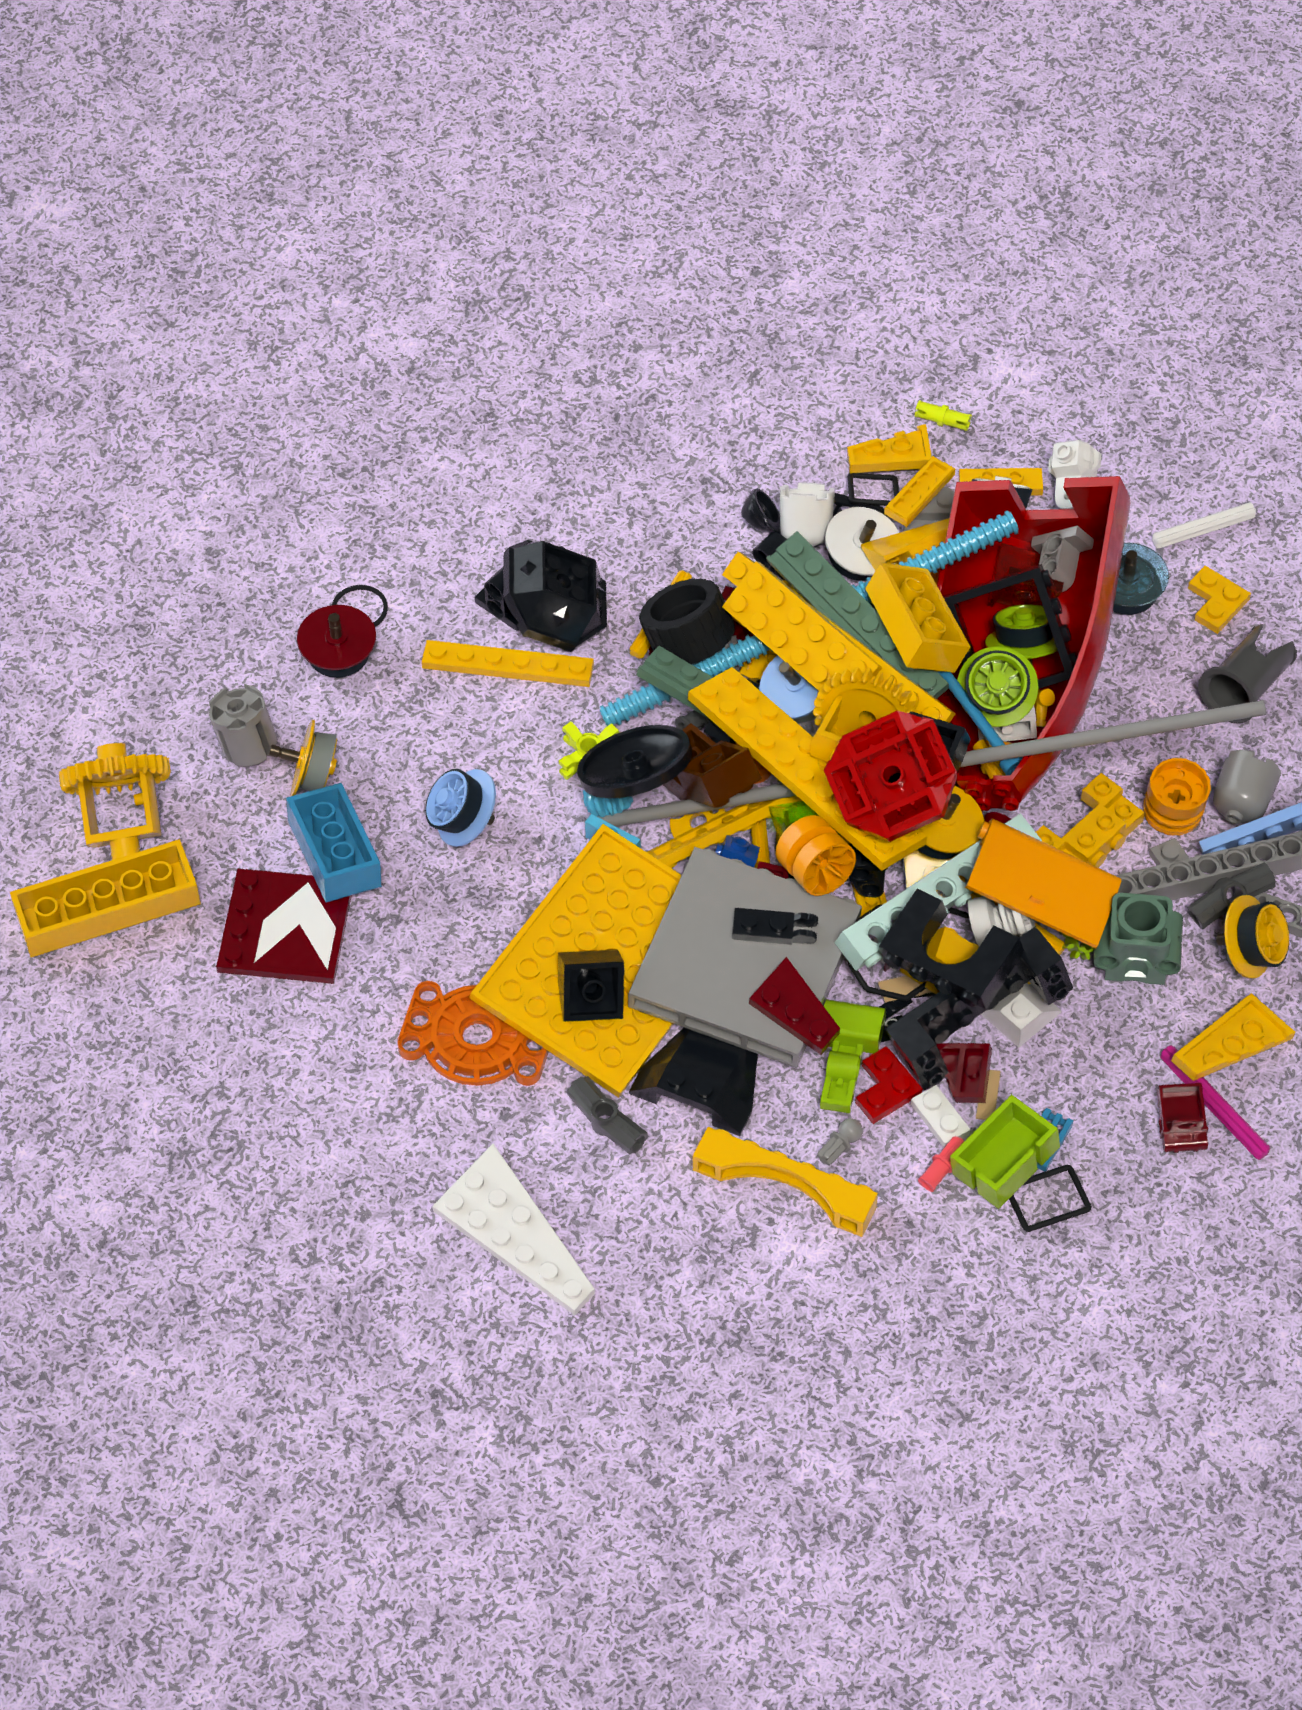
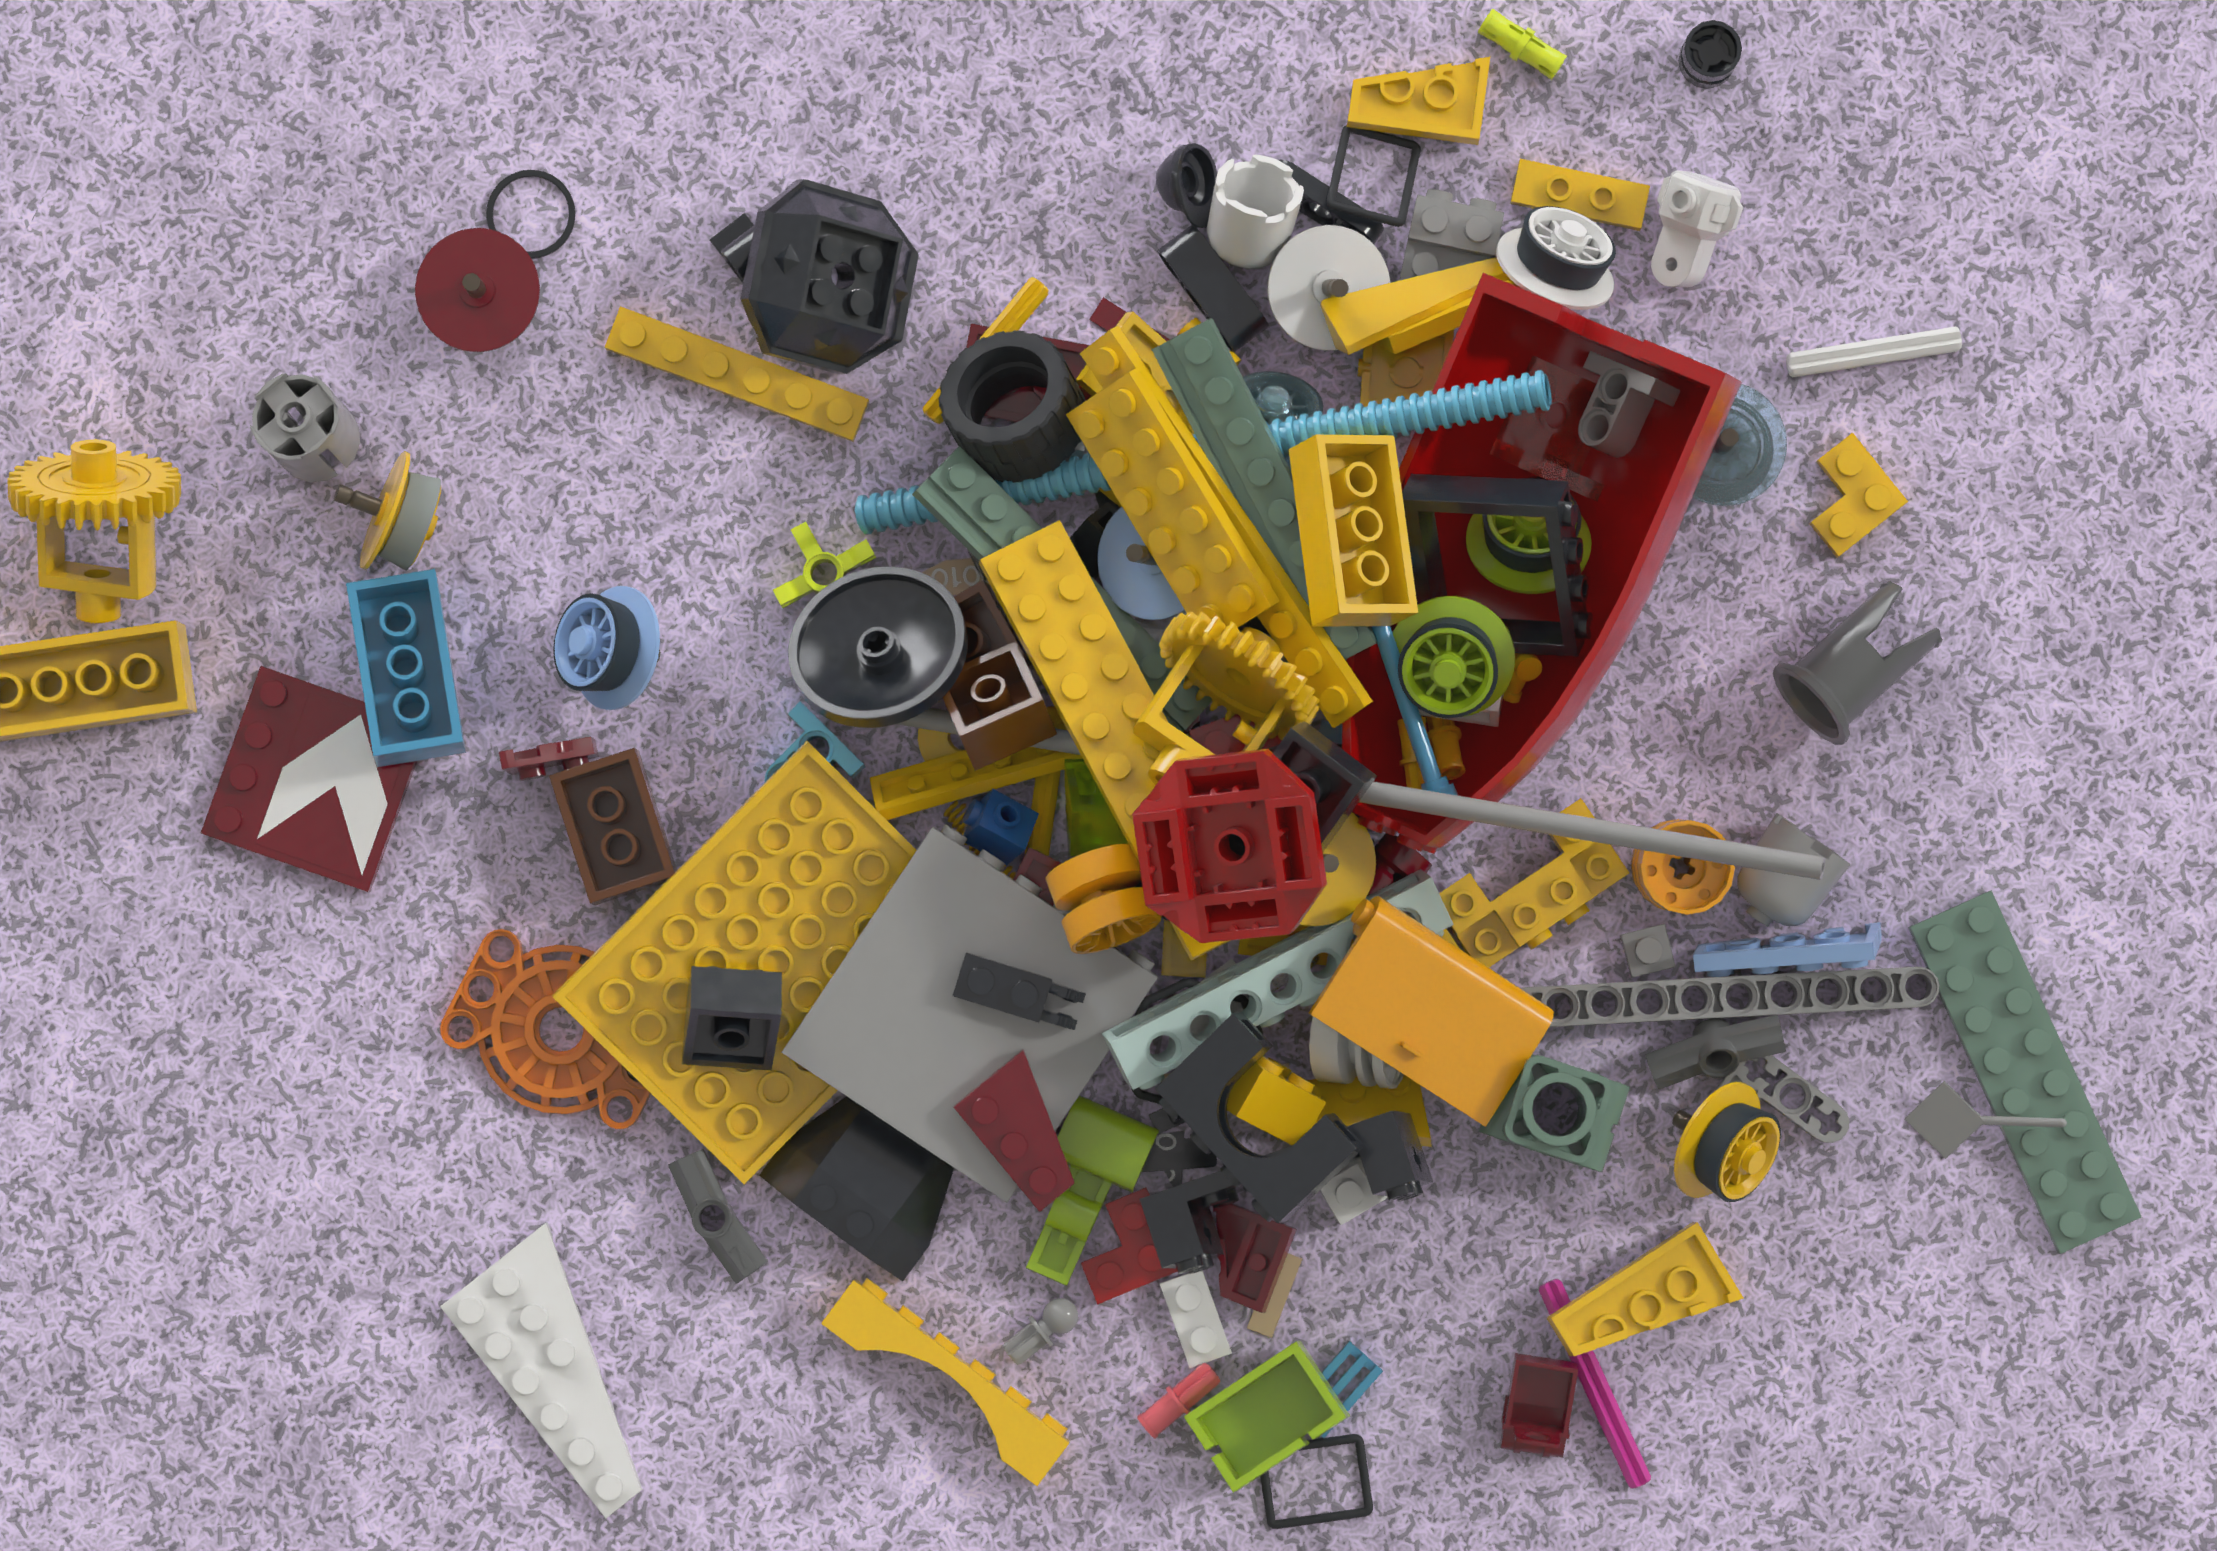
camera: 15 degrees right, 30 degrees up
(438, 876) = (532, 762): none -> dark red wing
(485, 904) = (614, 826): none -> reddish brown brick
(919, 491) = (1439, 214): yellow plate -> none
(1056, 395) = (1710, 54): none -> black wheel

